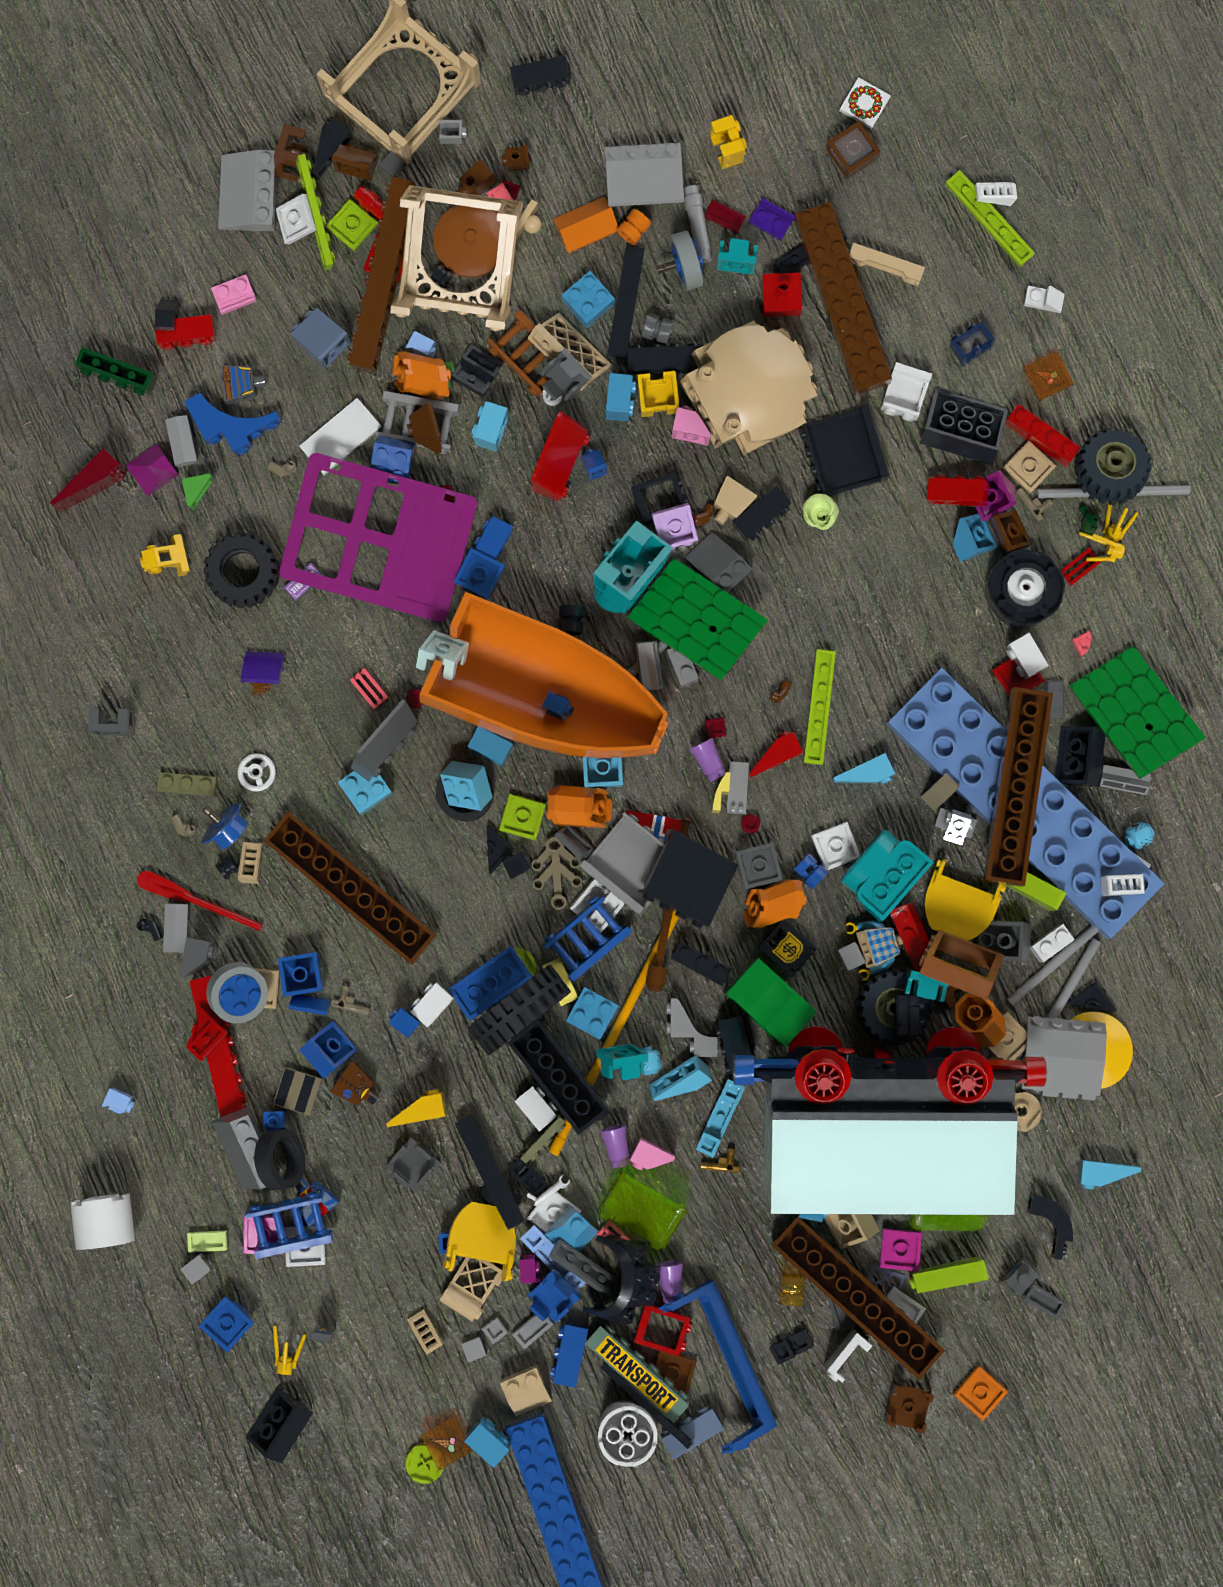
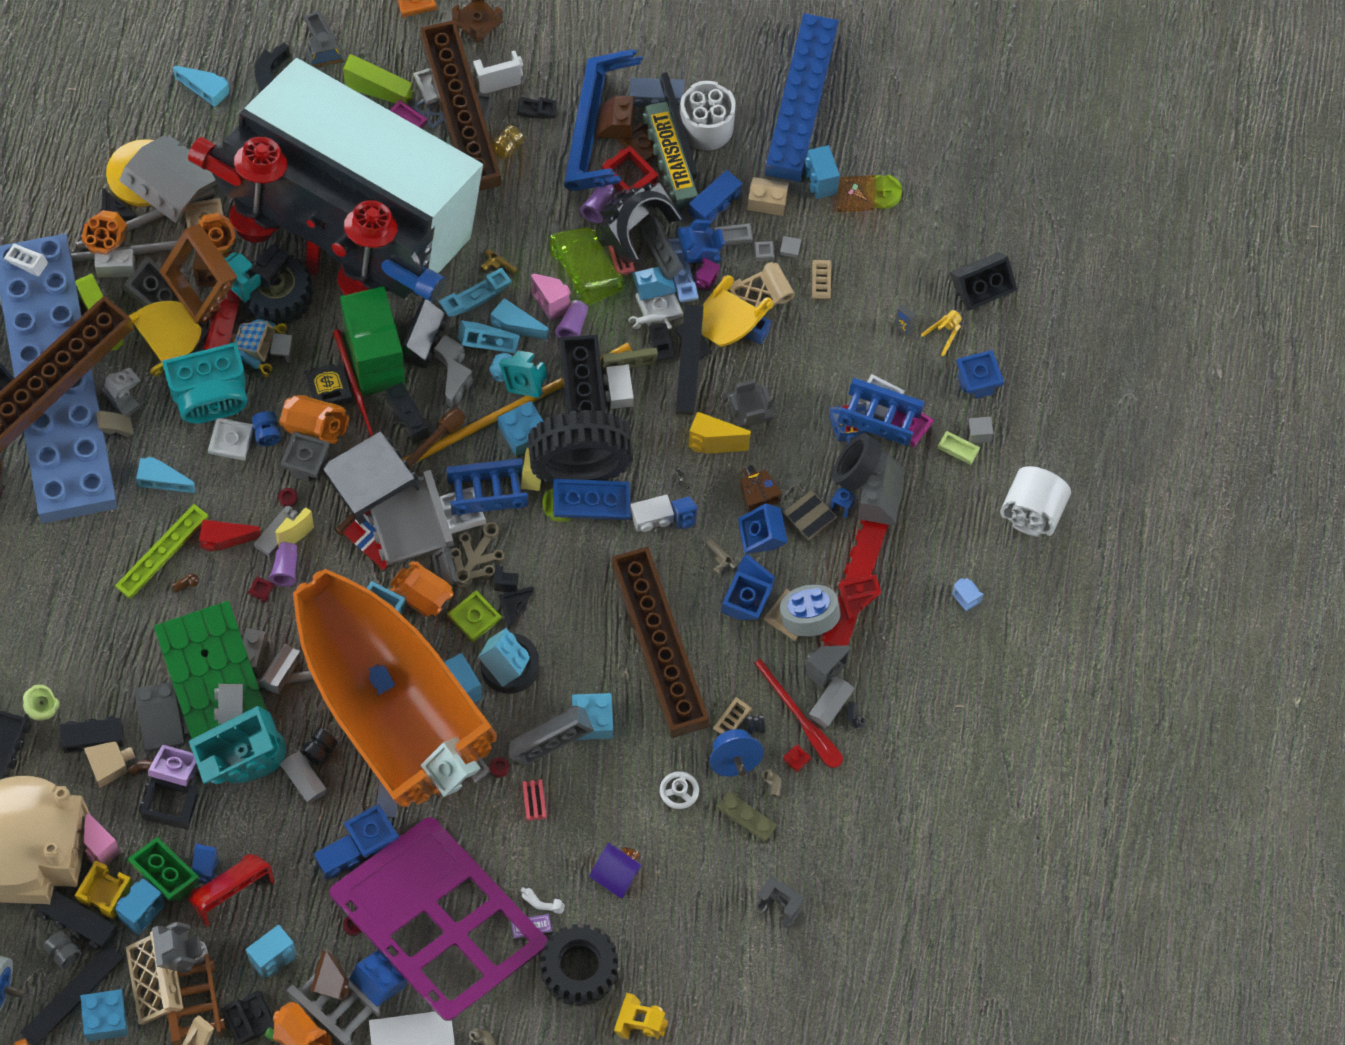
camera: 150 degrees left, 20 degrees down
(176, 861) = (796, 758): none -> red tile
(321, 606) = (530, 897): none -> white piece
(567, 587) = (303, 777): none -> light grey piece
(621, 434) = (164, 870): none -> green slope
(663, 602) = (229, 702): none -> light grey brick
(670, 1113) = (514, 320): none -> medium azure slope
(711, 1379) = (616, 118): none -> reddish brown slope
(807, 997) = (351, 376): none -> red piece
(1078, 960) = (104, 232): none -> orange brick

